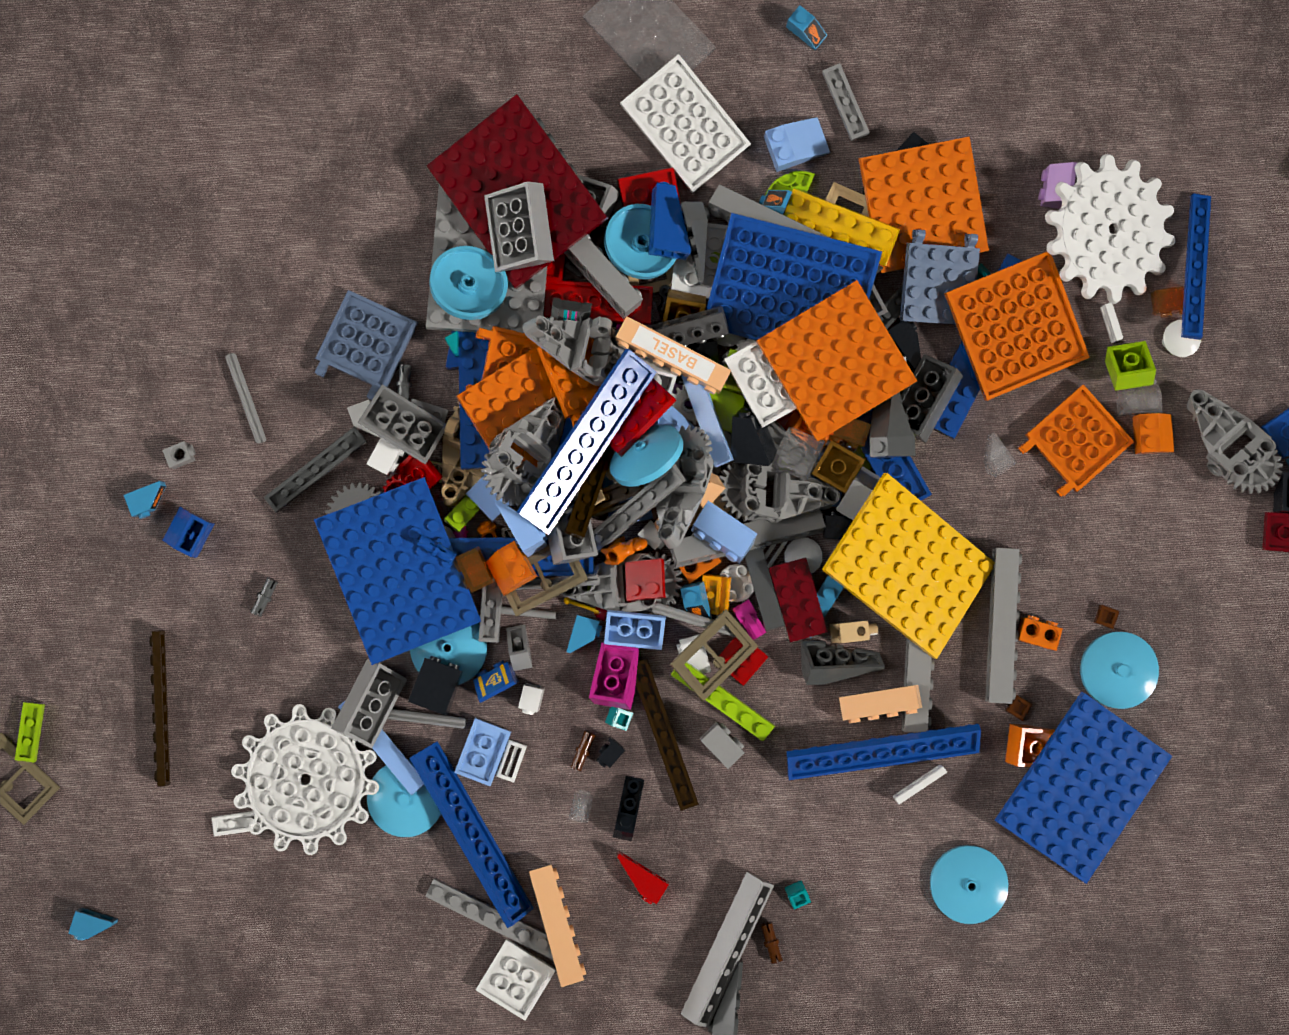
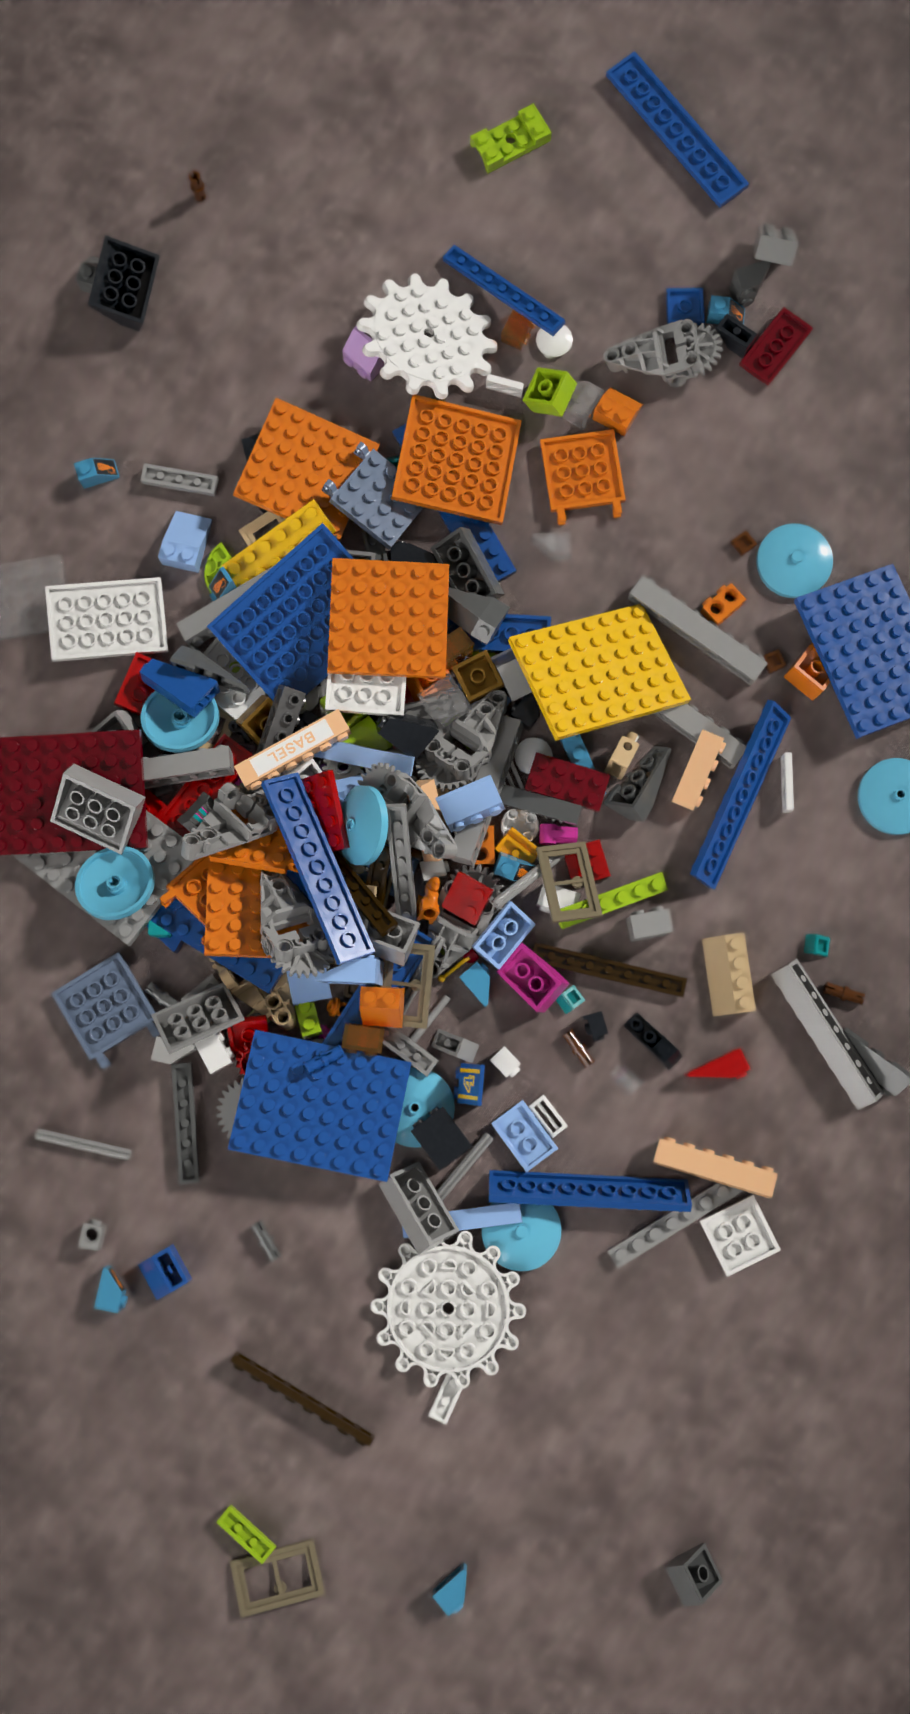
camera: 55 degrees left, 5 degrees down
(724, 836) = (728, 974): none -> tan slope

